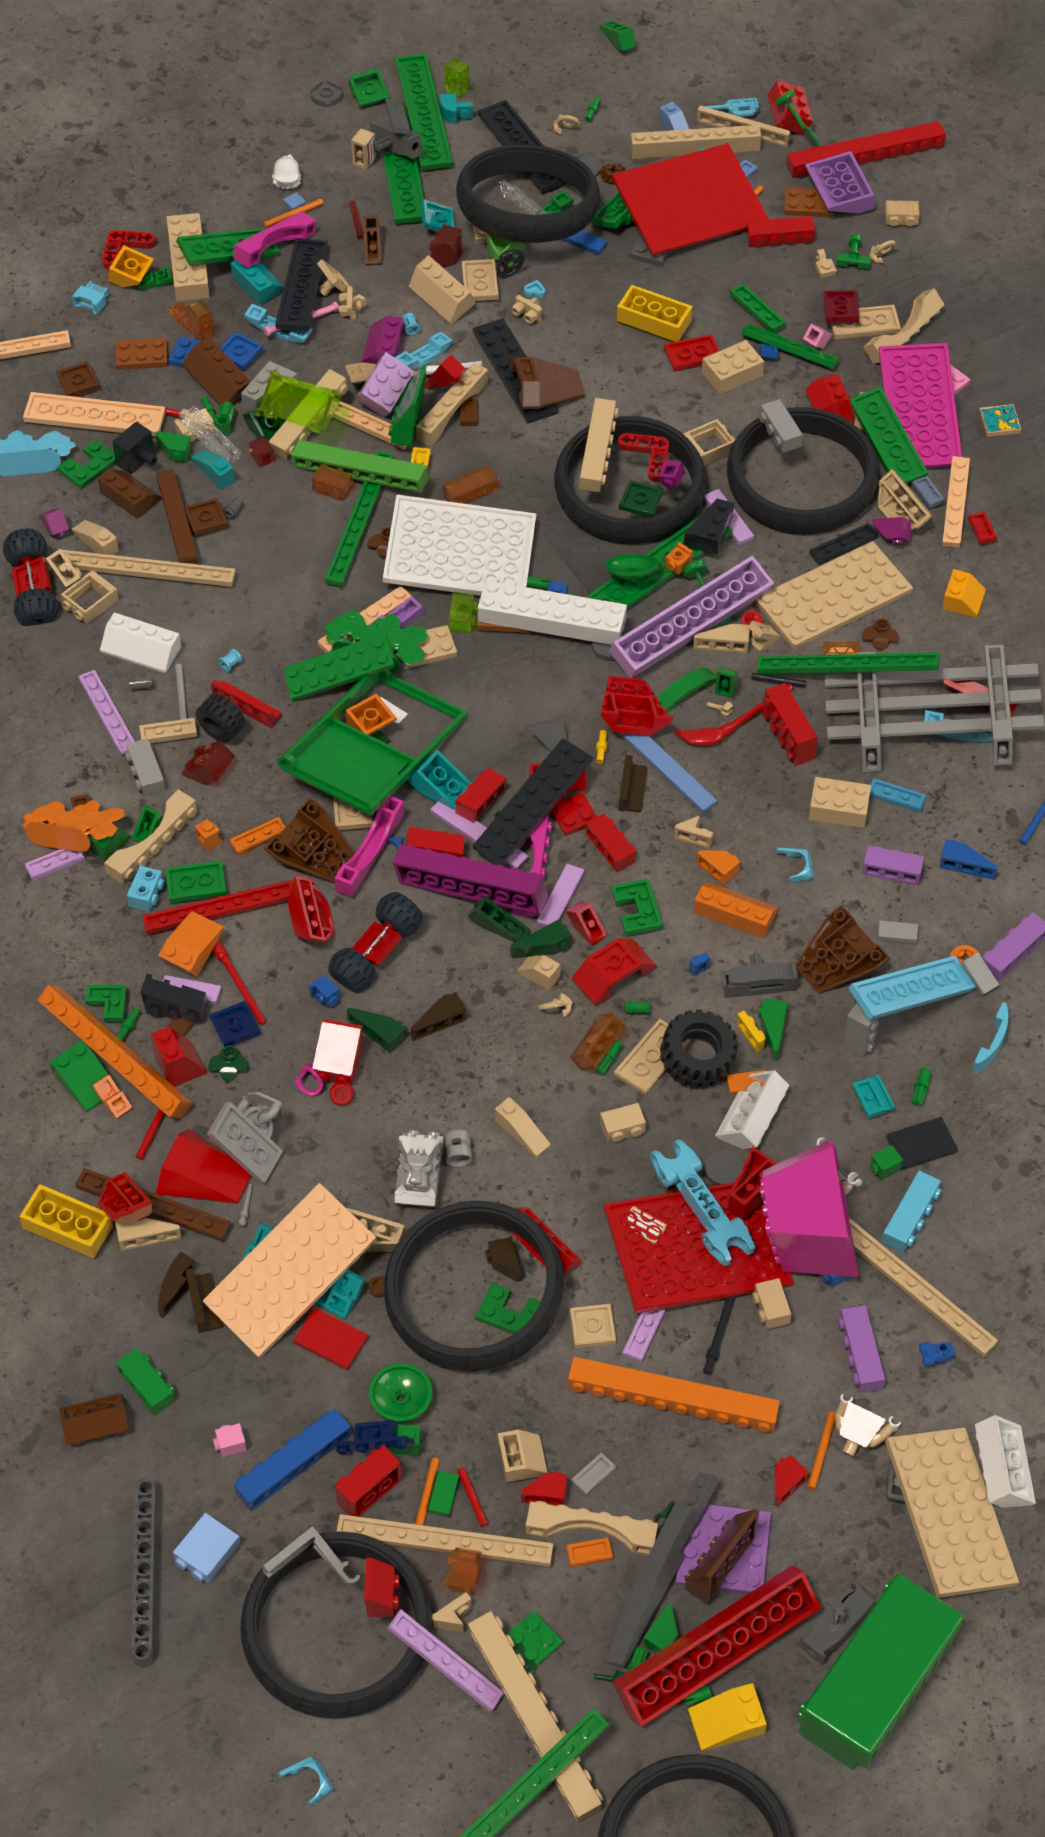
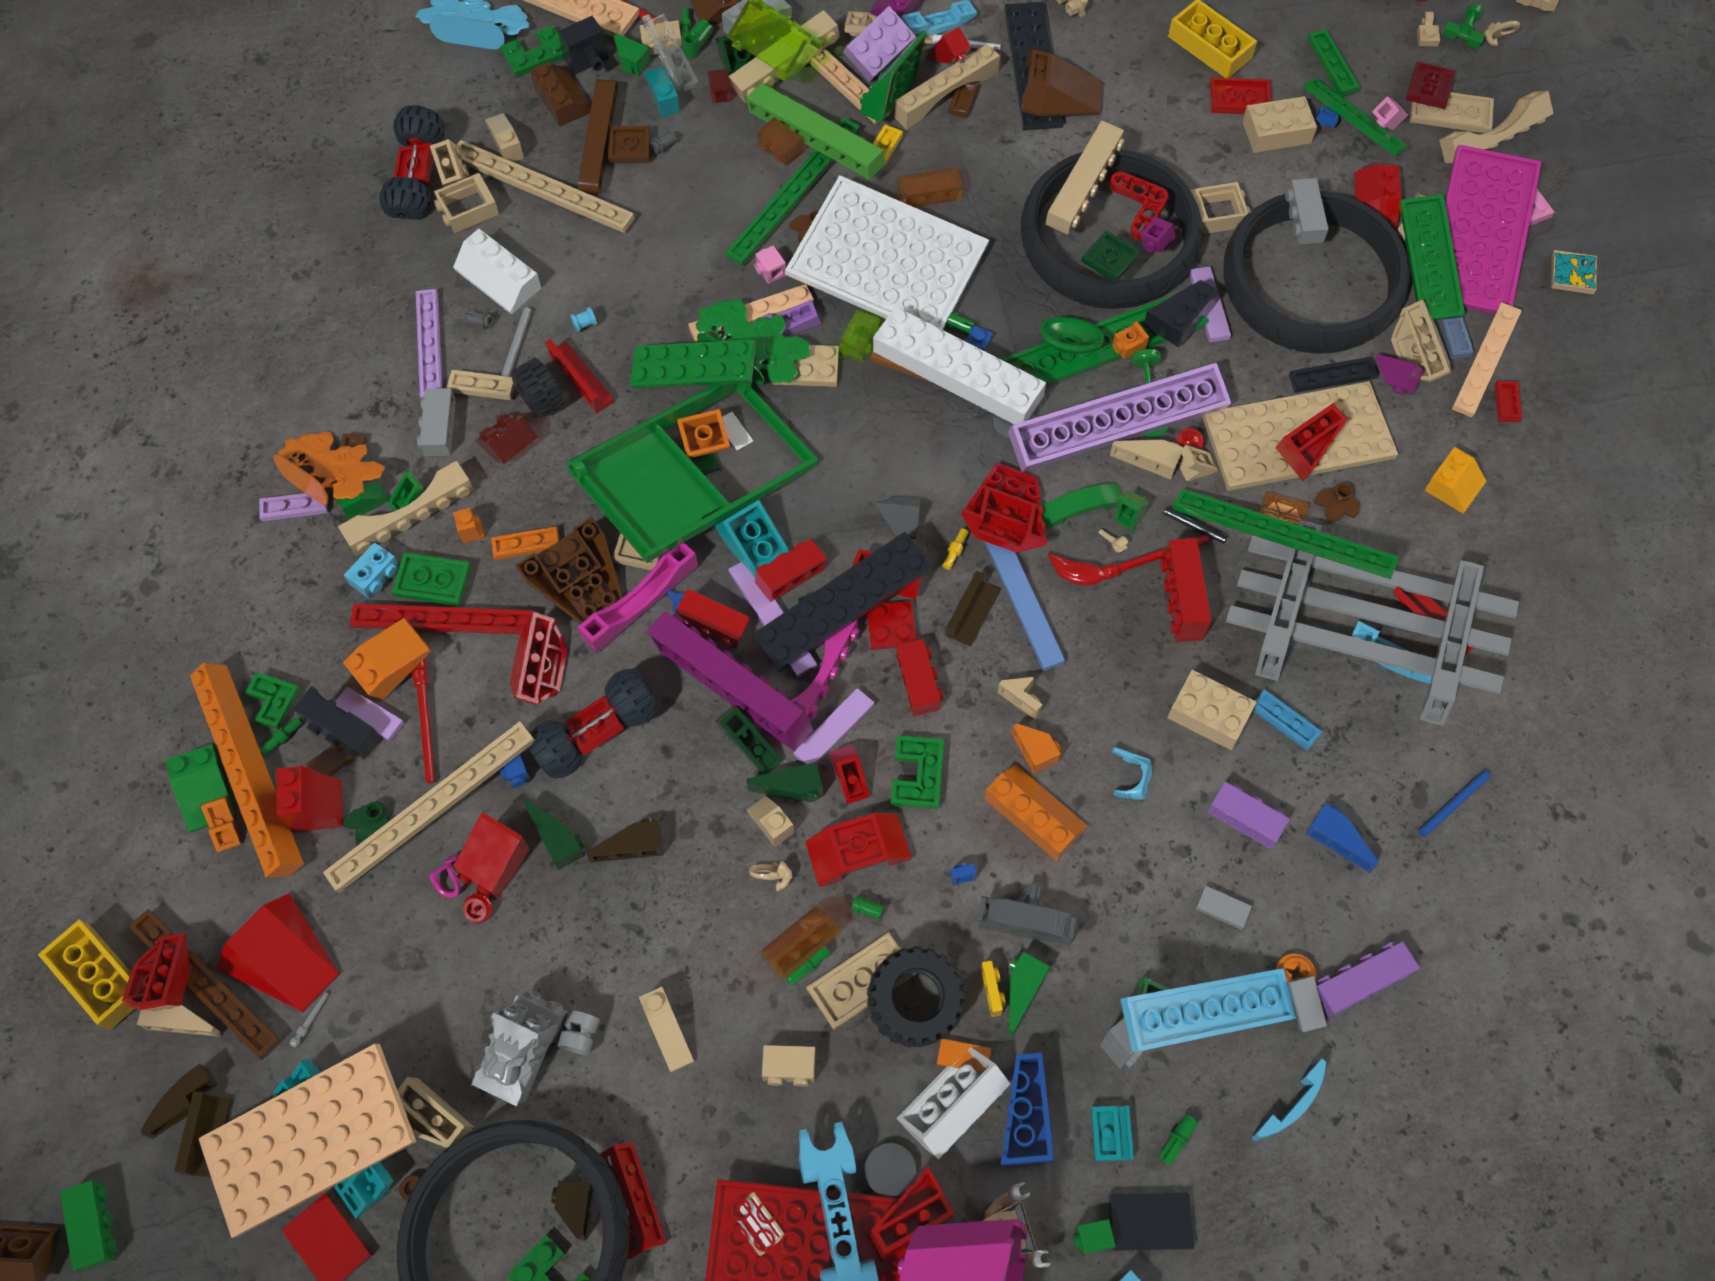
camera: 20 degrees right, 10 degrees up
(54, 522) = (467, 107): magenta slope -> none
(150, 1134) = (240, 890): red bar -> none
(234, 1024) = (395, 775): clear blue plate -> none
(247, 1133) = (335, 938): light grey plate -> none
(276, 1031) = (428, 807): none -> tan plate
(366, 578) = (770, 264): none -> bright pink brick
(812, 1104) = (1028, 1123): none -> blue wedge
(839, 953) = (1140, 917): reddish brown wedge -> none
(844, 593) = (1310, 440): none -> red wedge

